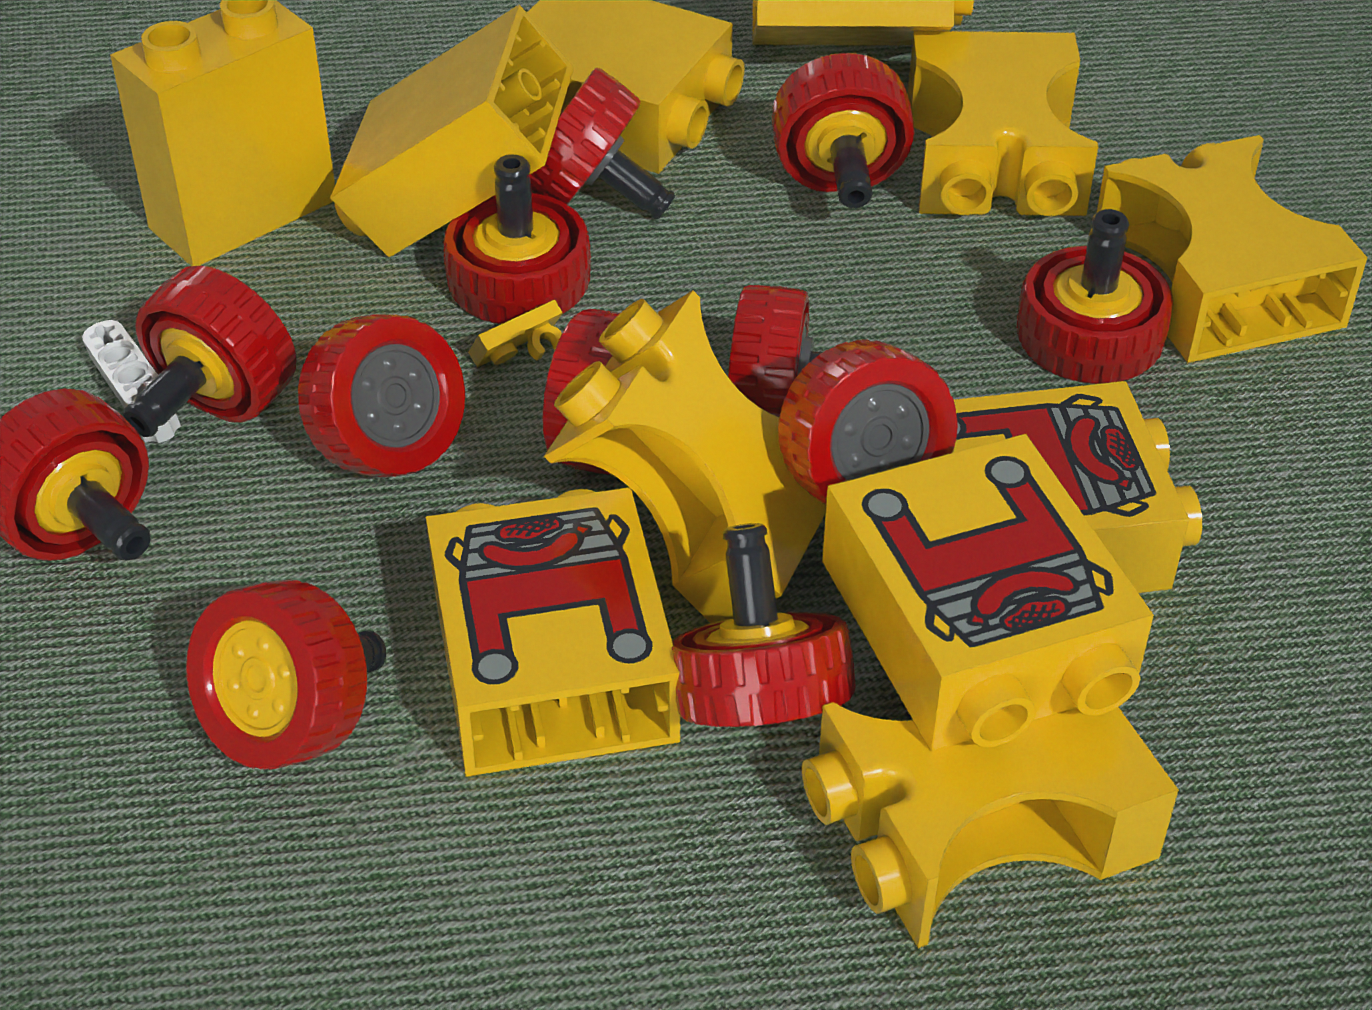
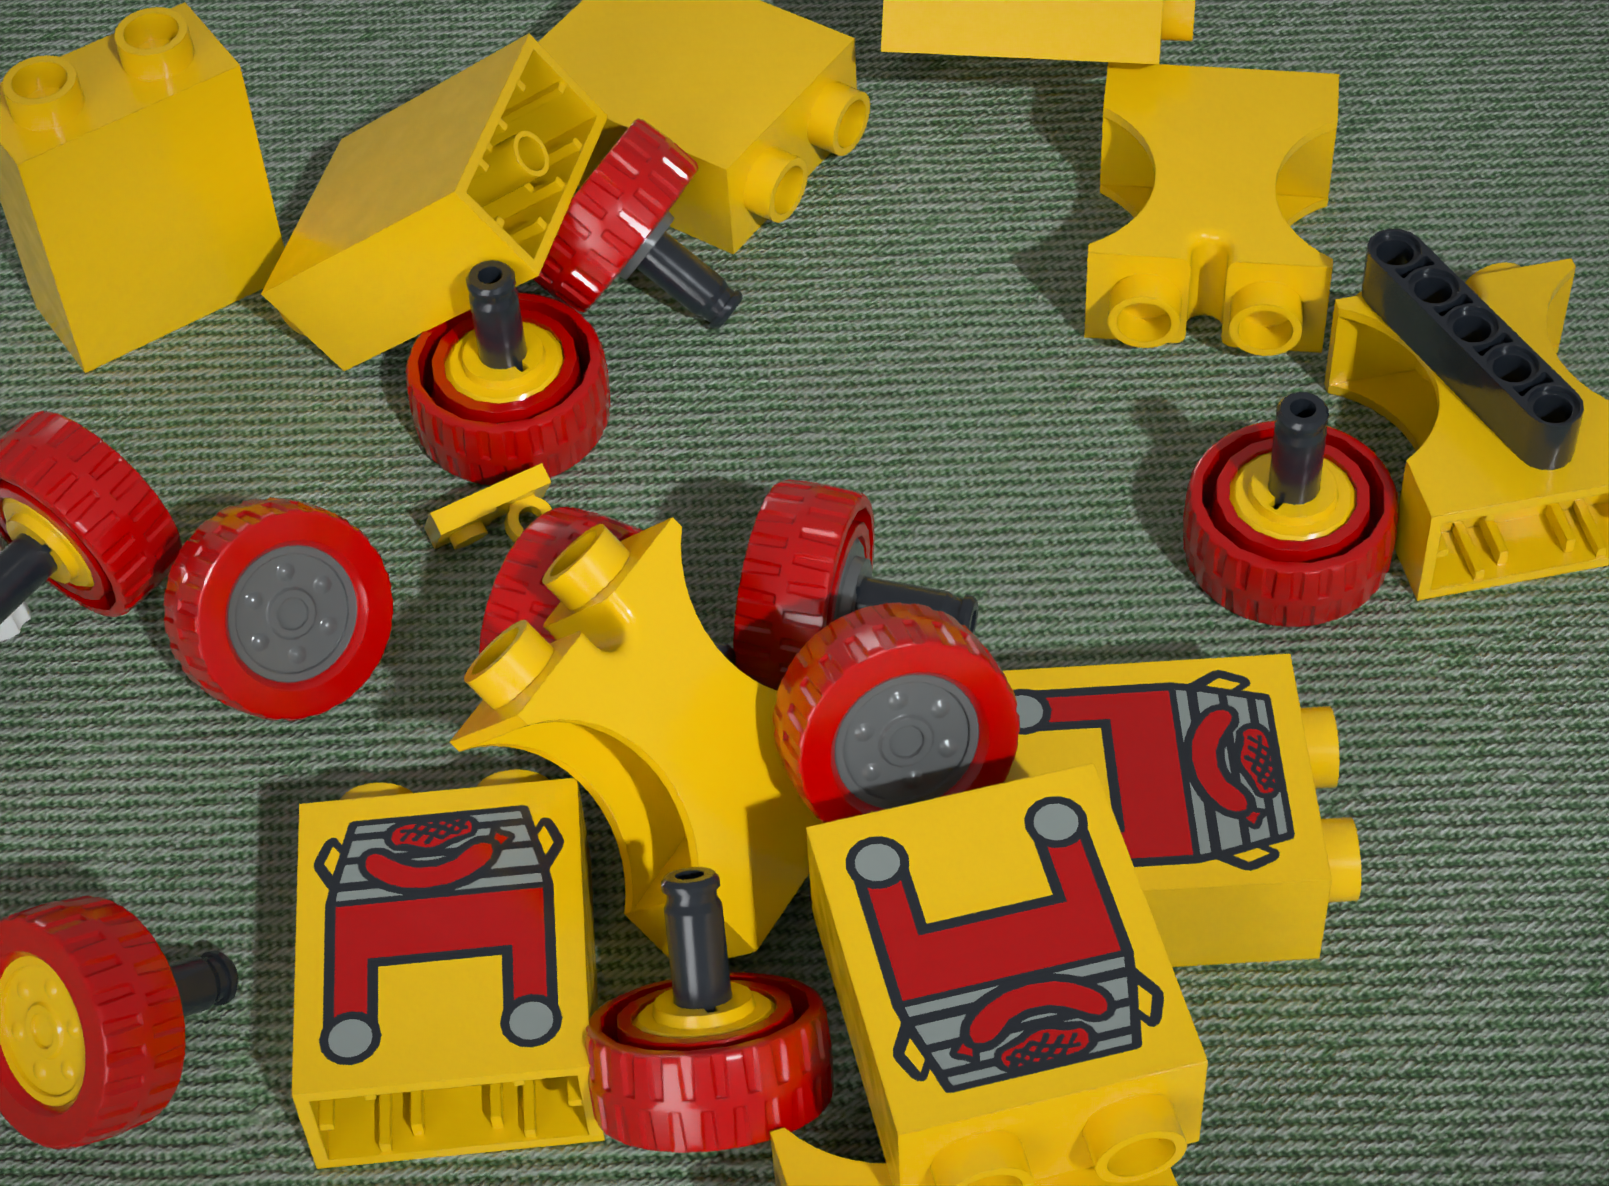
camera: 10 degrees right, 5 degrees up
(843, 125) = (983, 211): red wheel -> none
(1210, 186) = (1472, 349): none -> black beam

